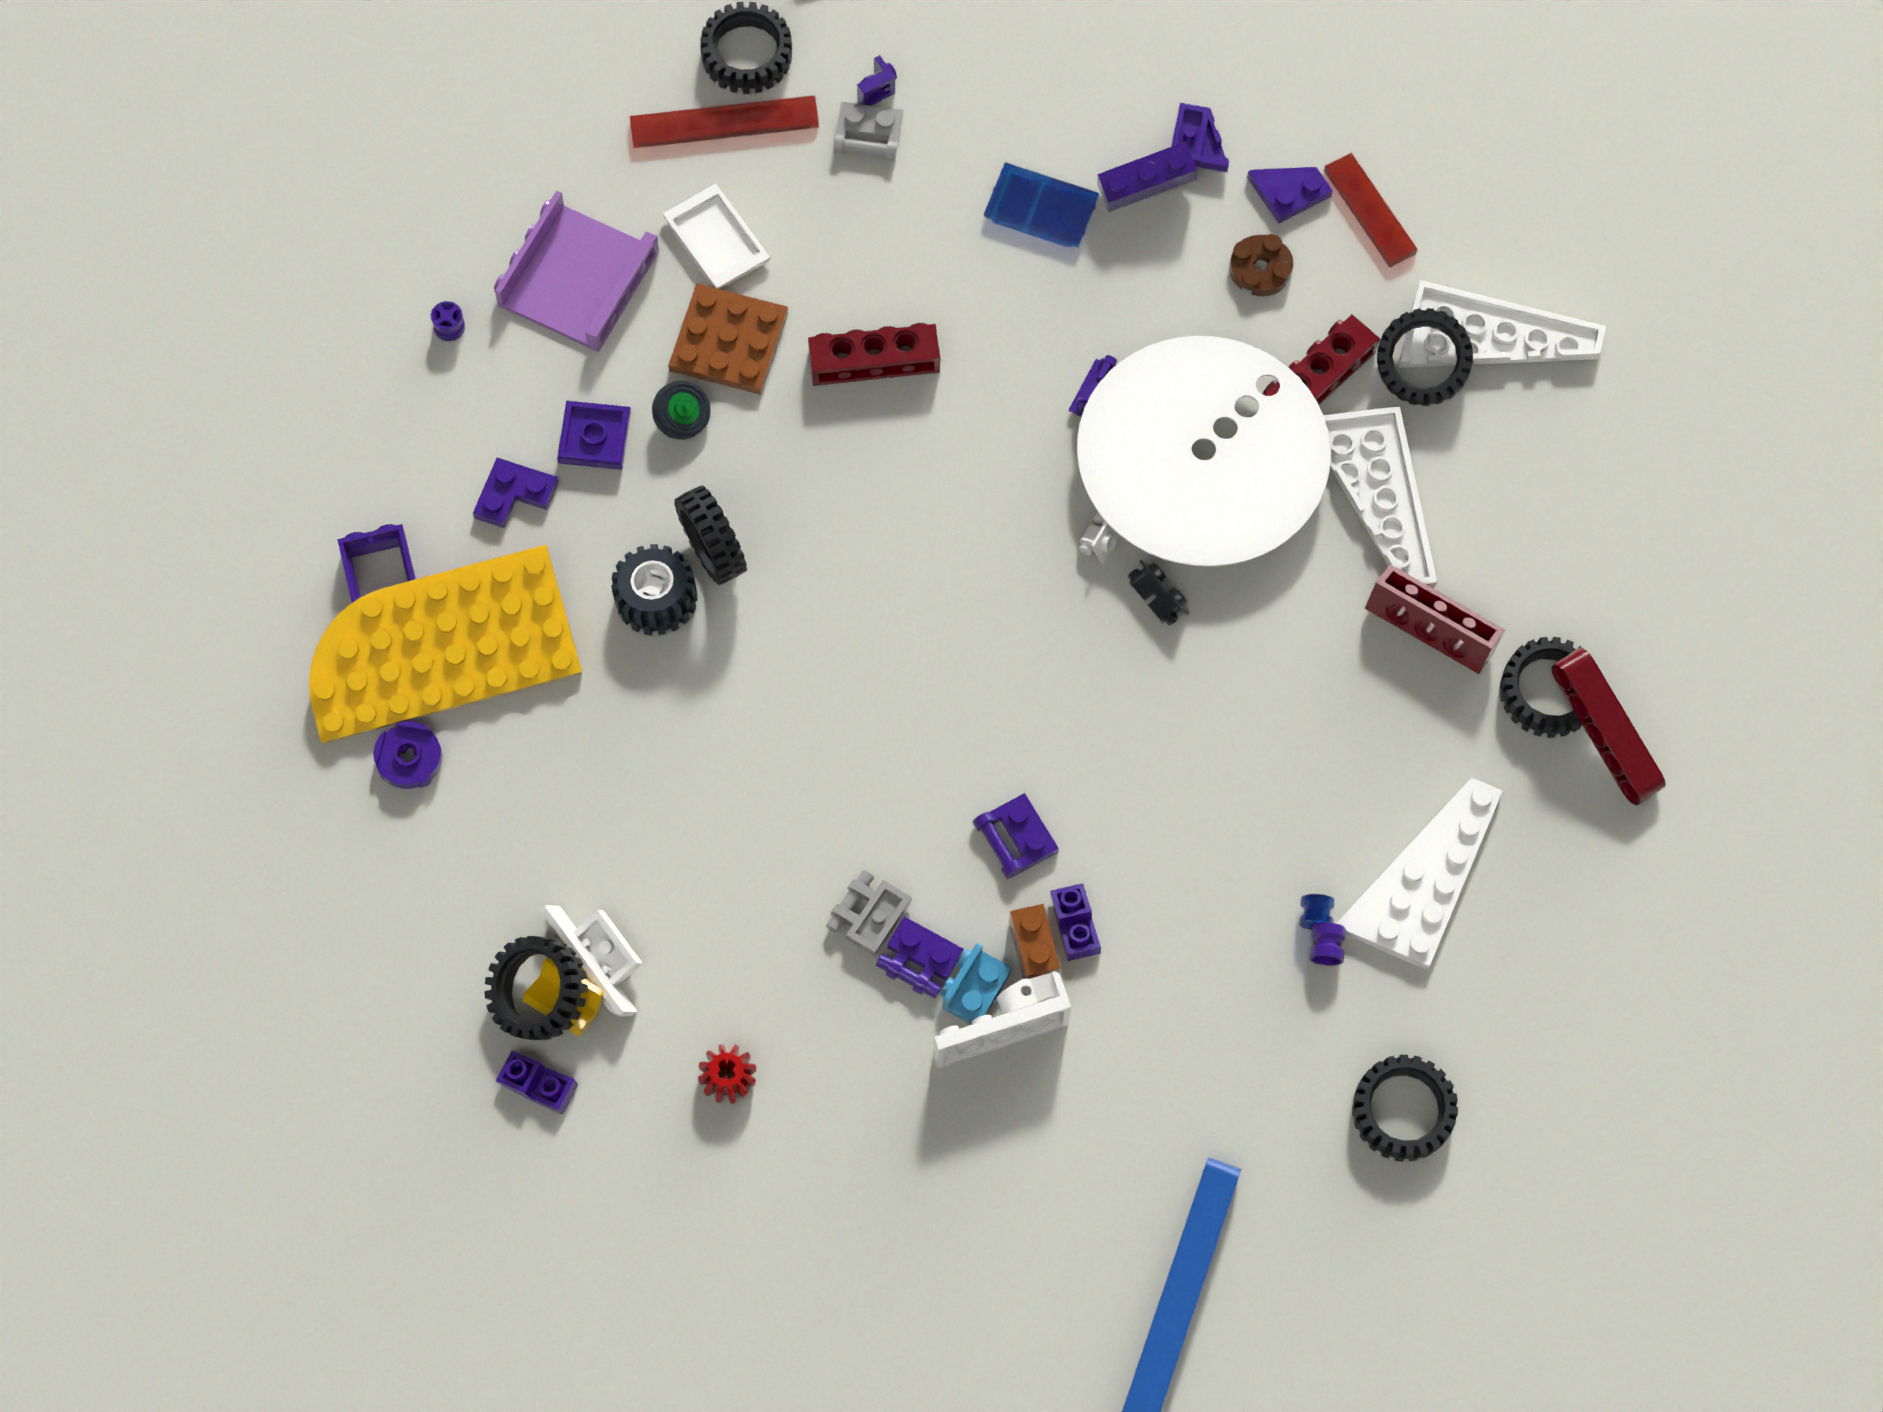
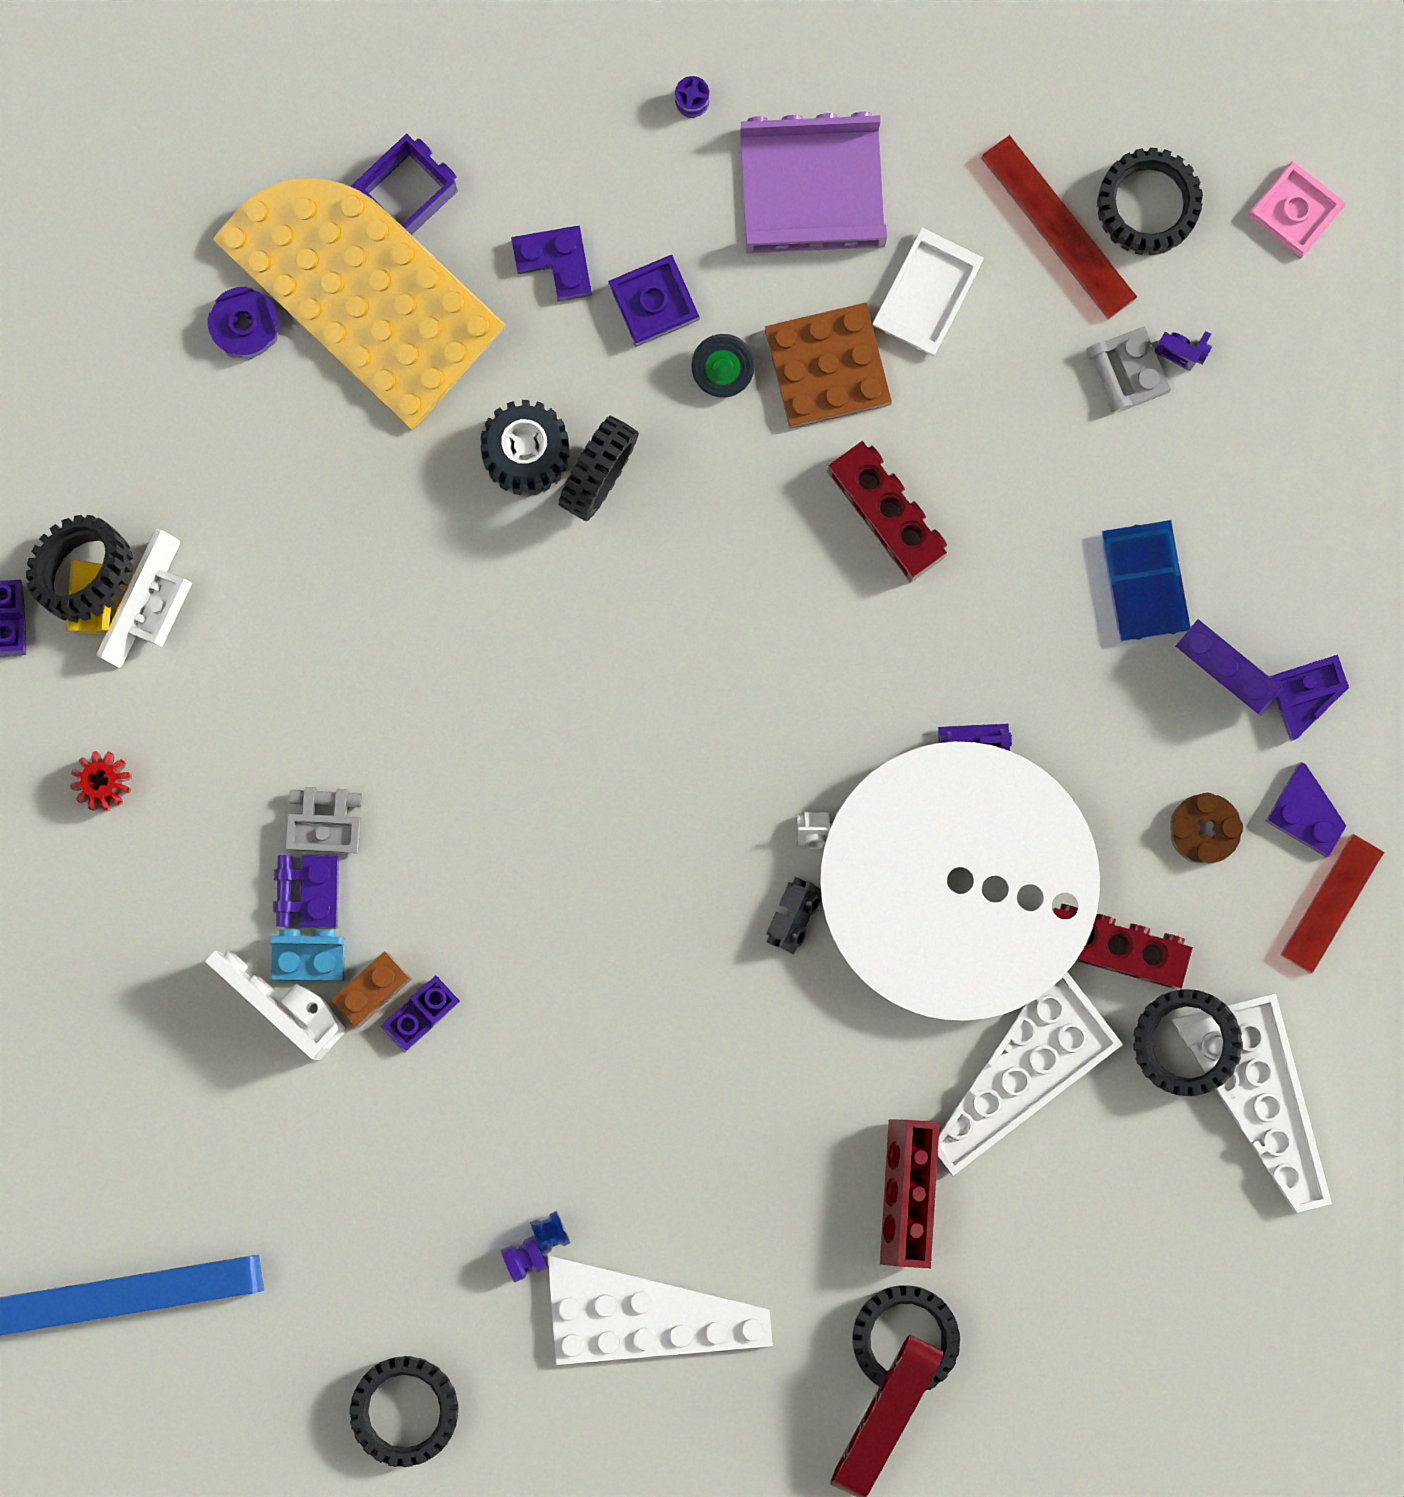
camera: 60 degrees right, 15 degrees up
(1025, 831) = (484, 919): dark purple plate -> none

